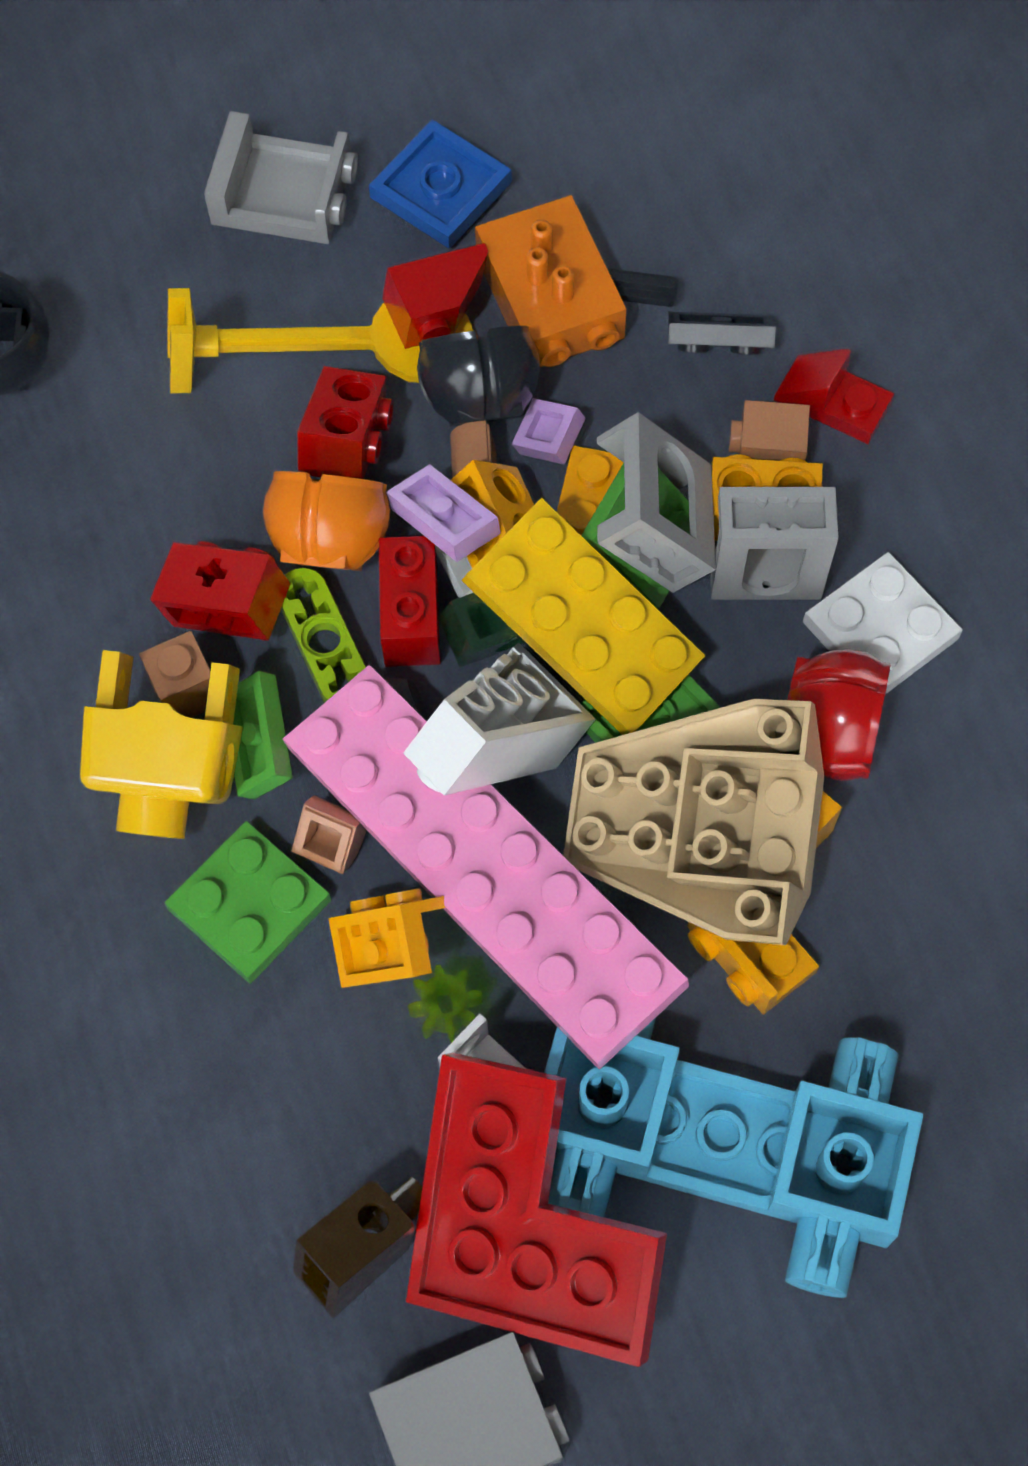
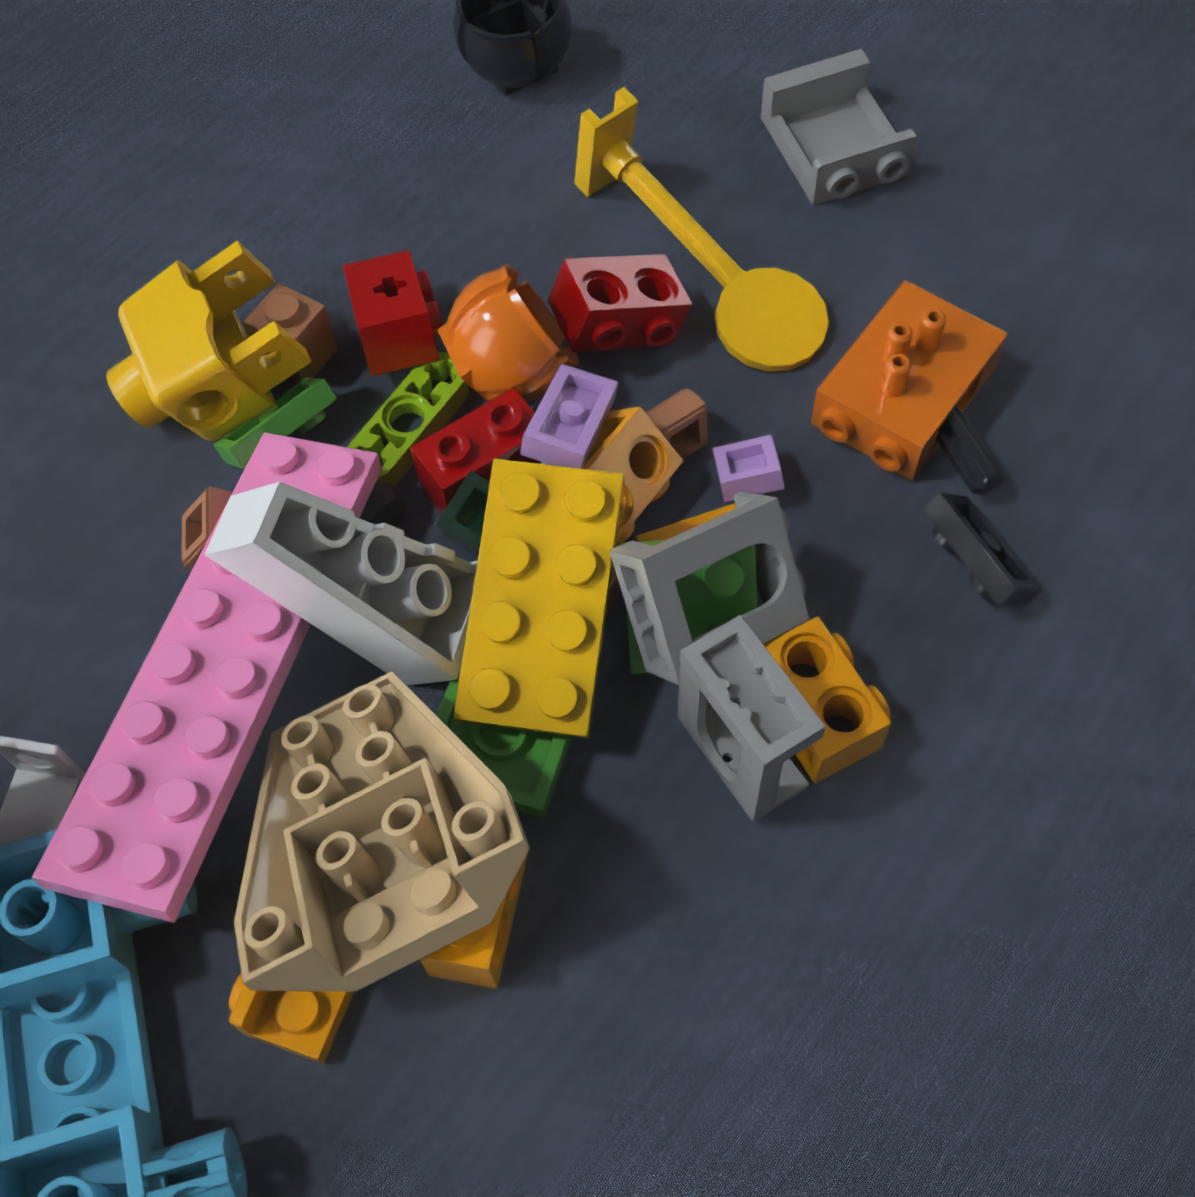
camera: 60 degrees right, 5 degrees down
(248, 901) = (117, 513): bright green plate -> none
(383, 941) = (101, 633): light orange bracket -> none
(433, 293) = (812, 294): red slope -> none
(440, 183) = (940, 240): blue plate -> none
(441, 985) = (73, 712): clear neon green gear -> none
(479, 376) = (747, 370): black piece -> none
(770, 431) = (898, 661): nougat brick -> none
(834, 394) = (1001, 703): red slope -> none
(848, 704) = (603, 905): red piece -> none
(885, 616) = (765, 903): white plate -> none

